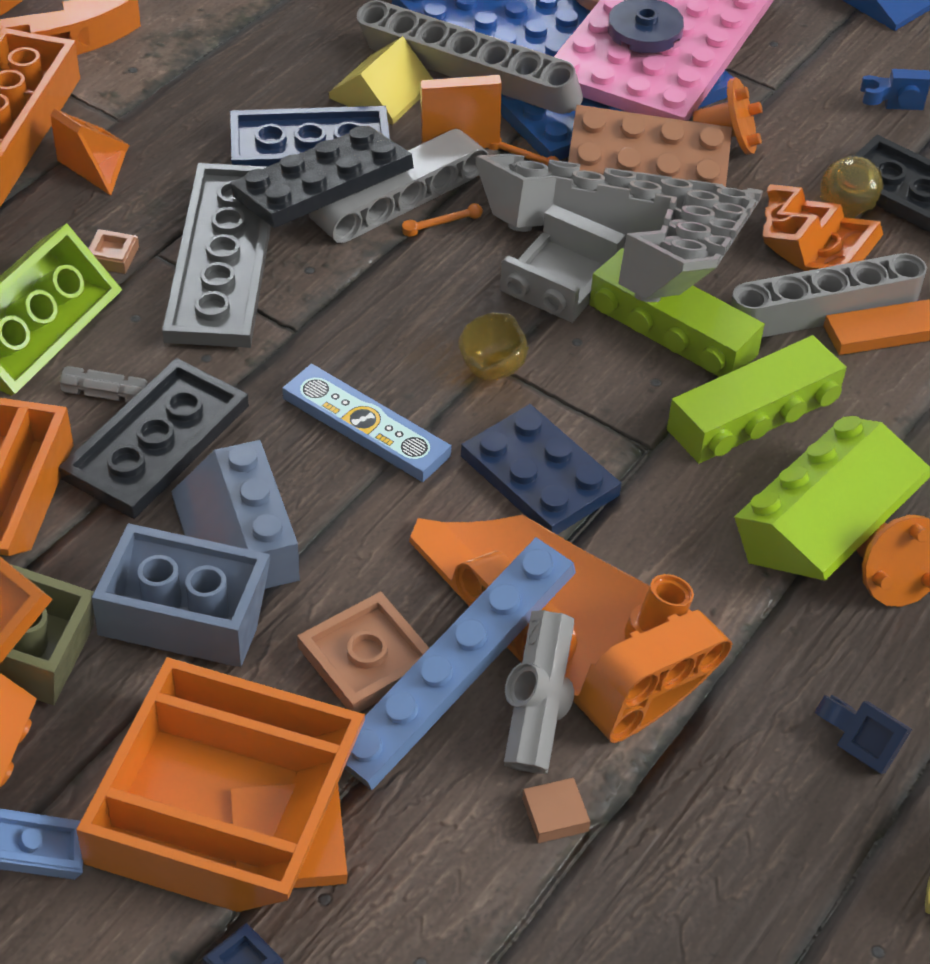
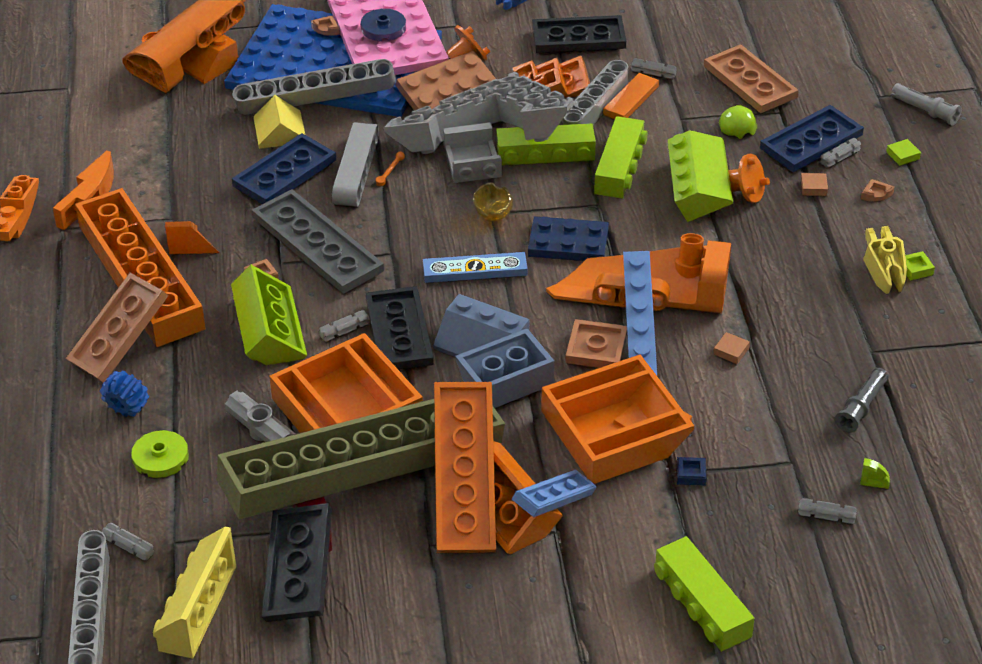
camera: 40 degrees left, 5 degrees down
(321, 175) = (325, 178): black plate -> none
(462, 104) = (346, 110): orange tile -> none
(518, 151) = (365, 120): orange hinge -> none
(539, 692) = (693, 320): light grey piece -> none
(853, 184) = (549, 46): clear yellow hair -> none
(869, 732) = (806, 247): dark blue plate -> none

